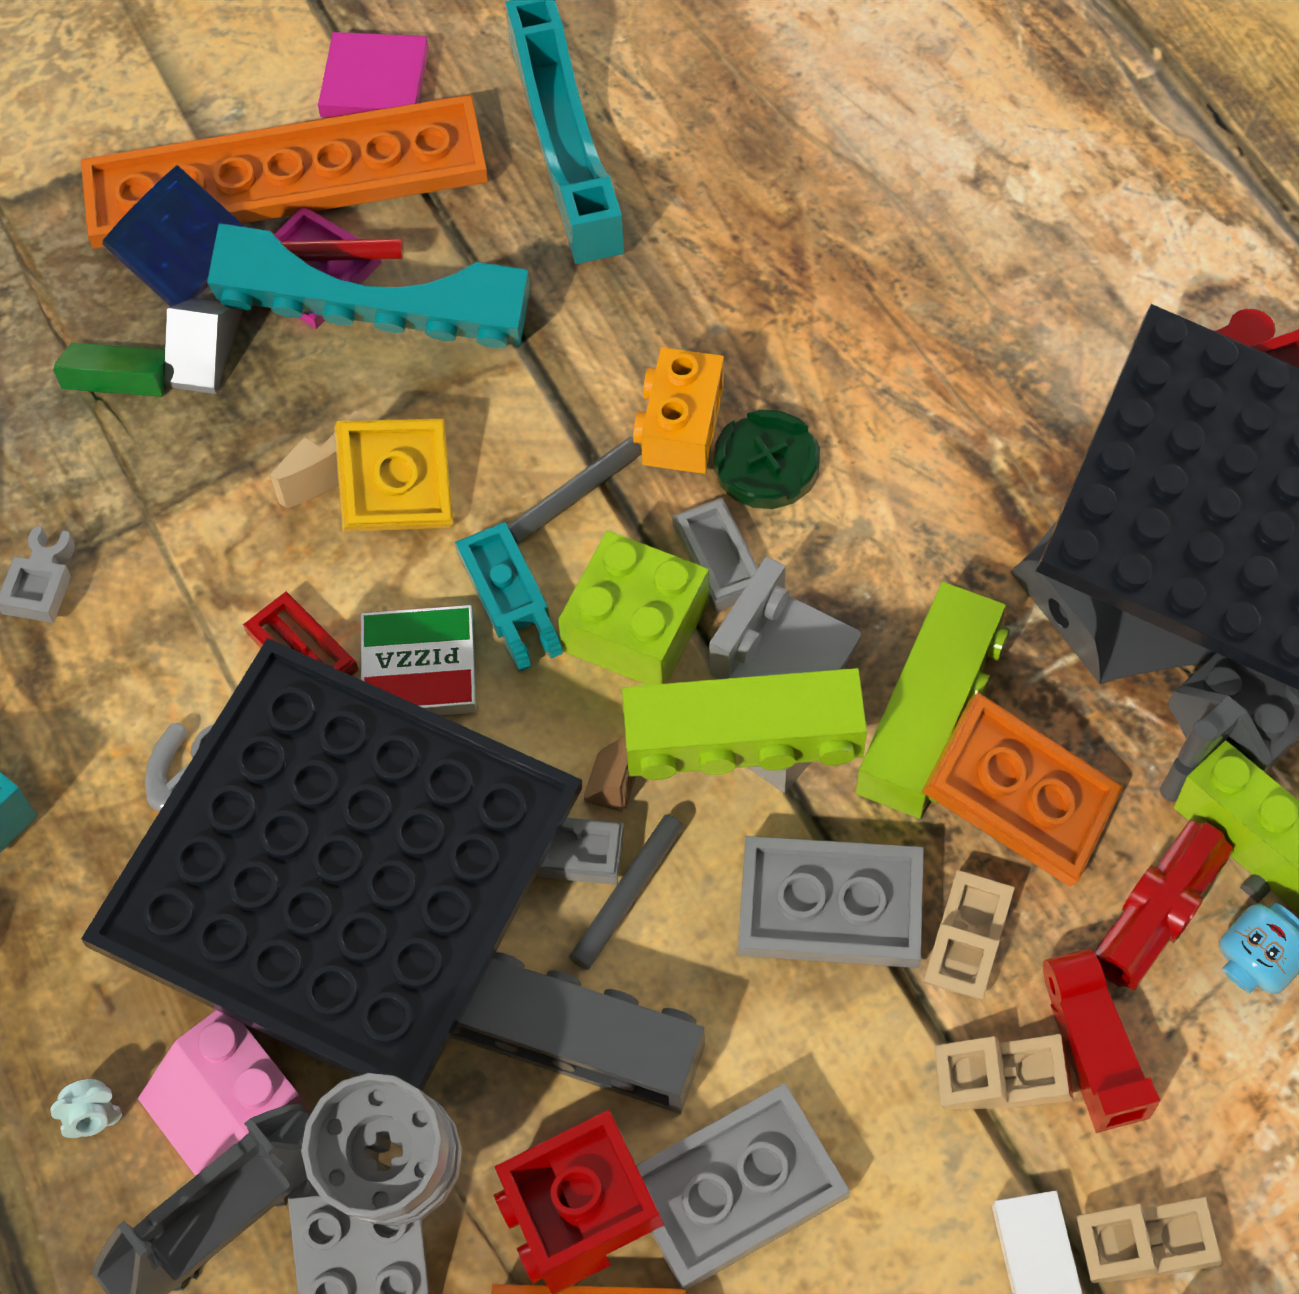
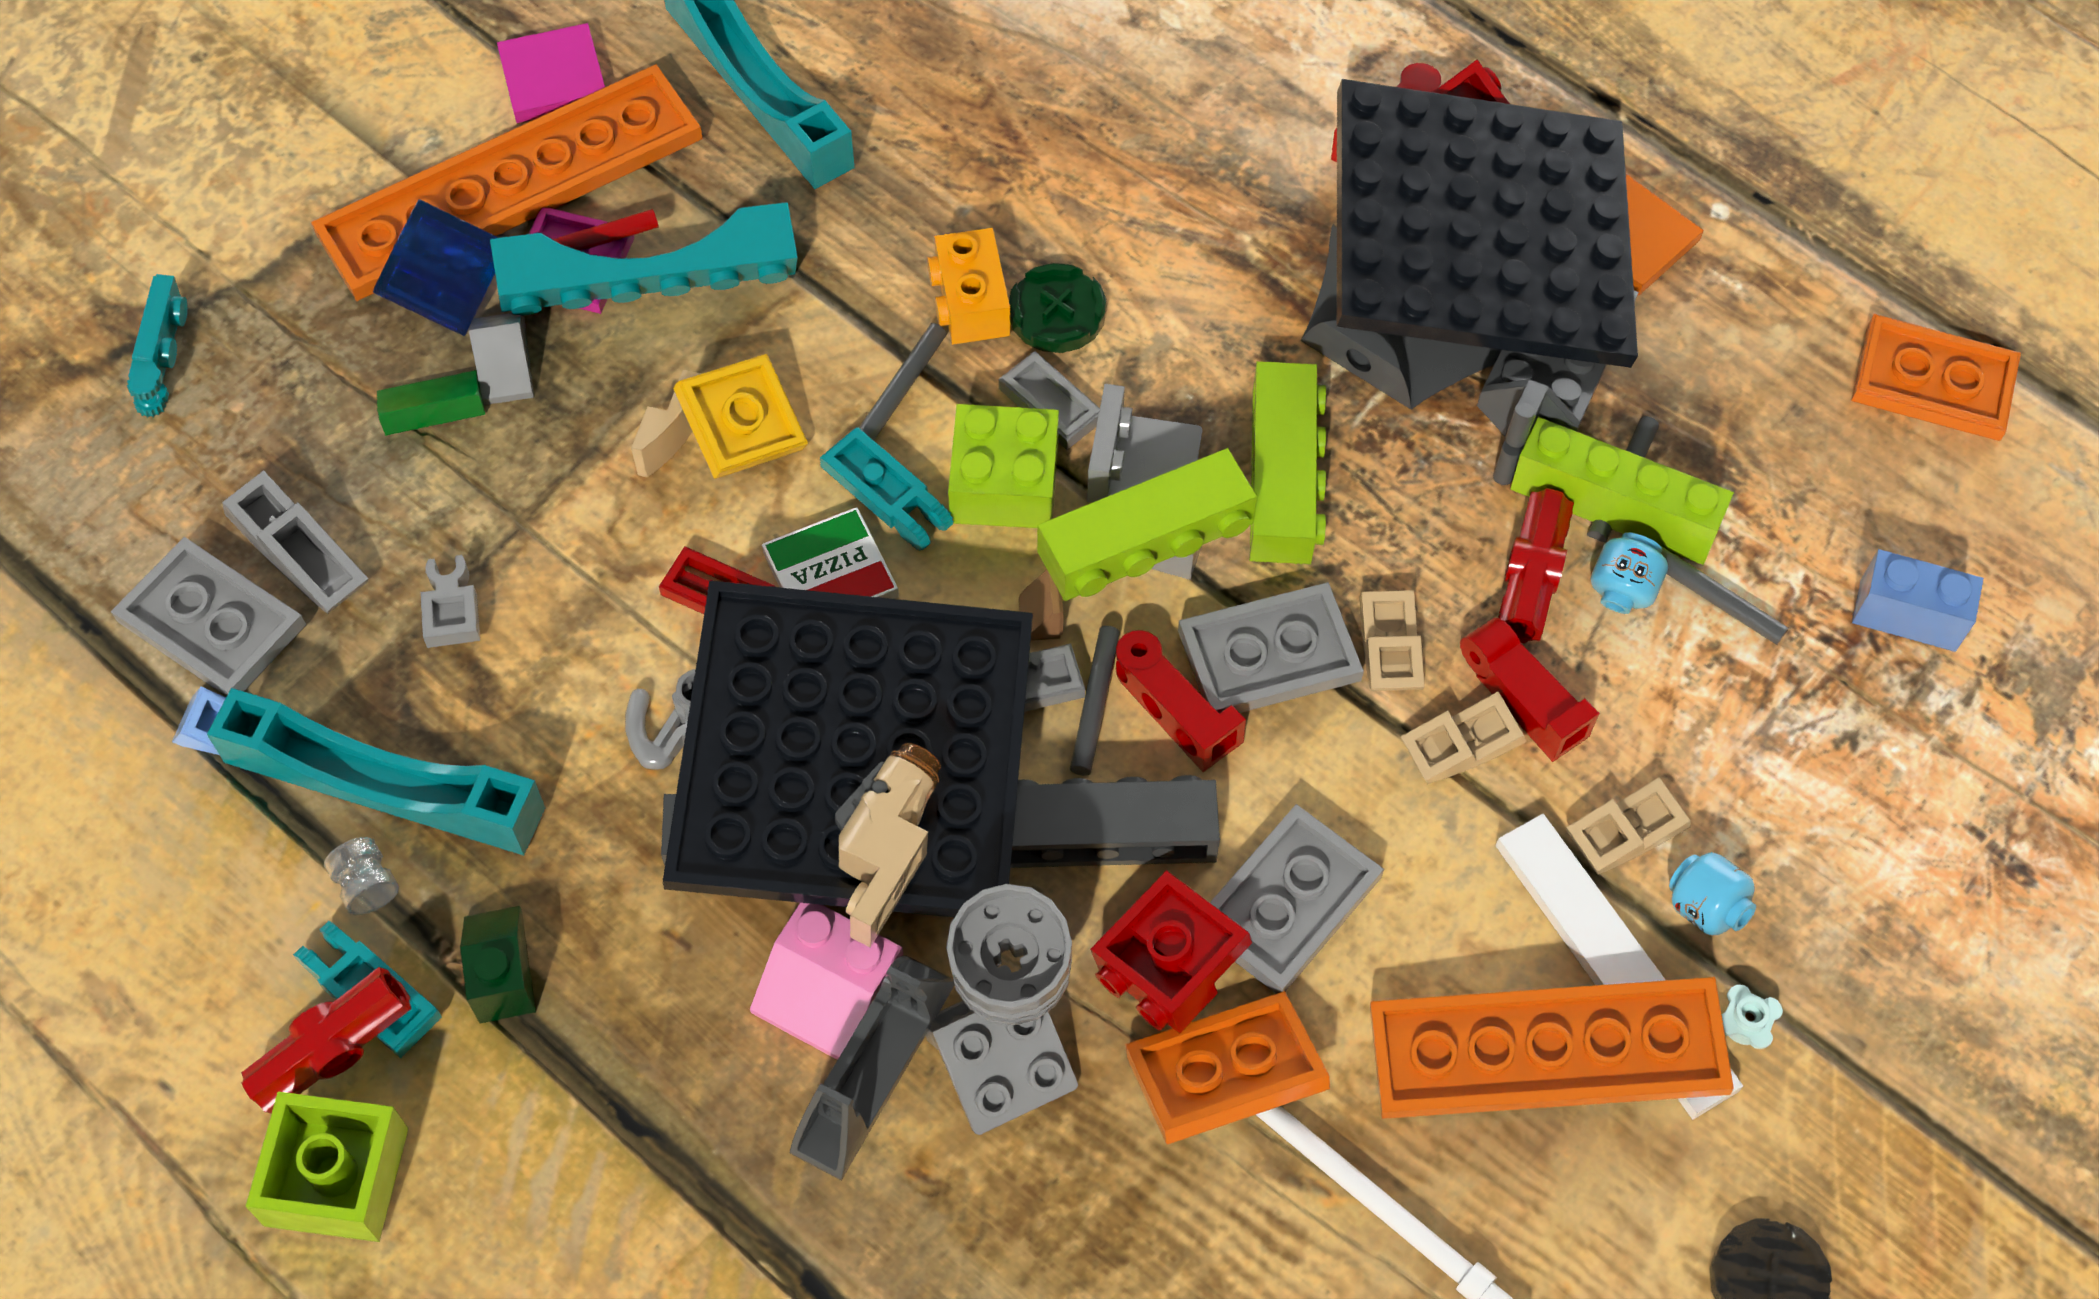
camera: 25 degrees left, 0 degrees up
(85, 1108) = (711, 1030): light aqua plate -> none
(308, 972) = (882, 836): none -> tan plate
(720, 966) = (1175, 702): none -> red leg
(1023, 789) = (1389, 509): orange tile -> none

